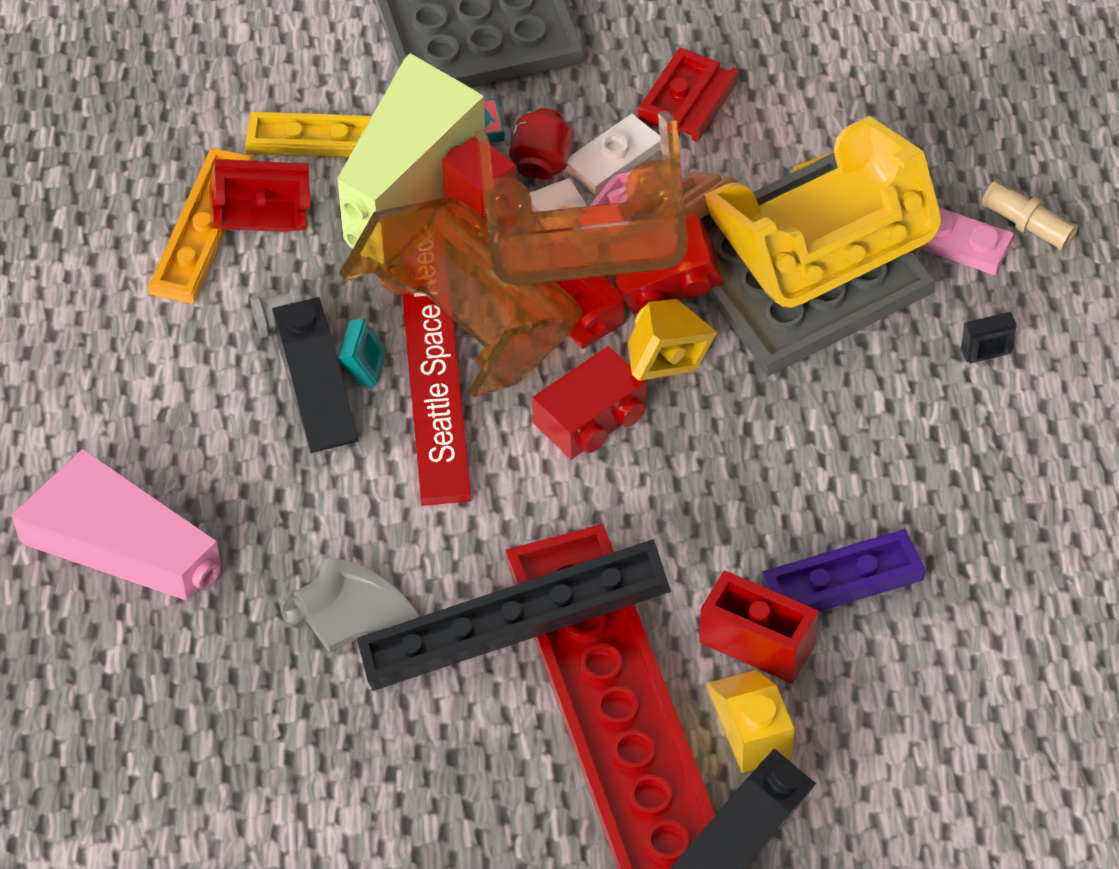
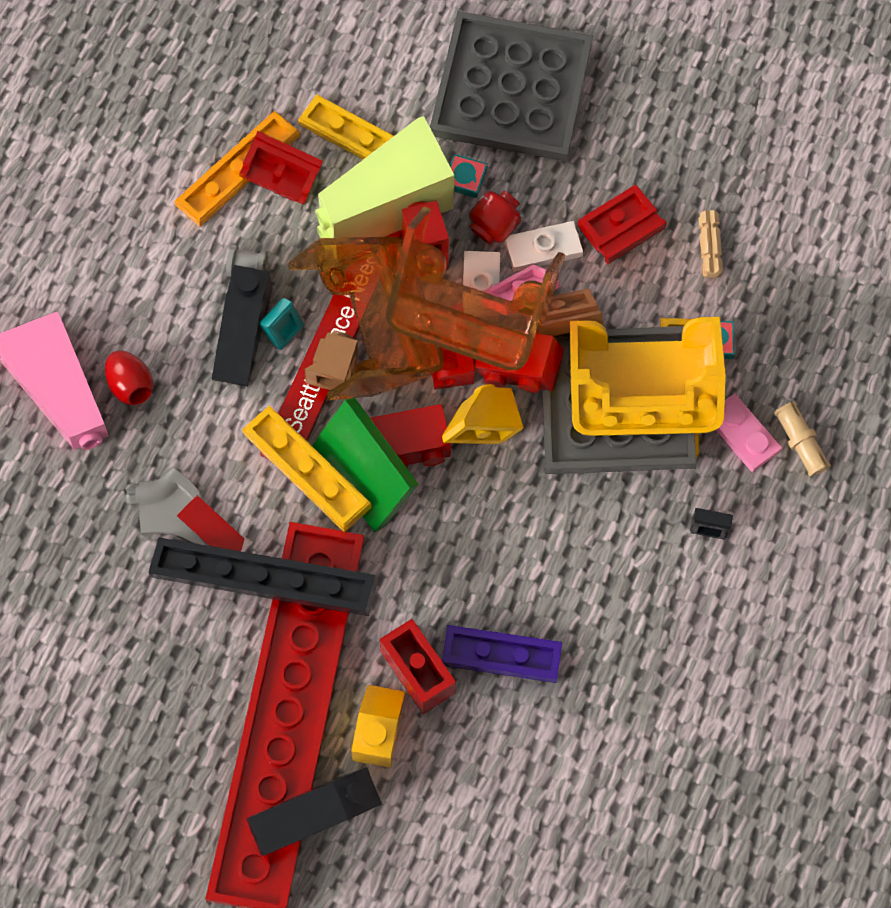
camera: 25 degrees right, 15 degrees up
(211, 488) = (128, 378): none -> red animal
(404, 600) = (210, 525): none -> red sticker
(451, 360) = (332, 361): none -> medium nougat window
(490, 485) = (307, 468): none -> yellow tile
(559, 447) = (367, 461): none -> green tile
(799, 74) = (710, 244): none -> tan axle

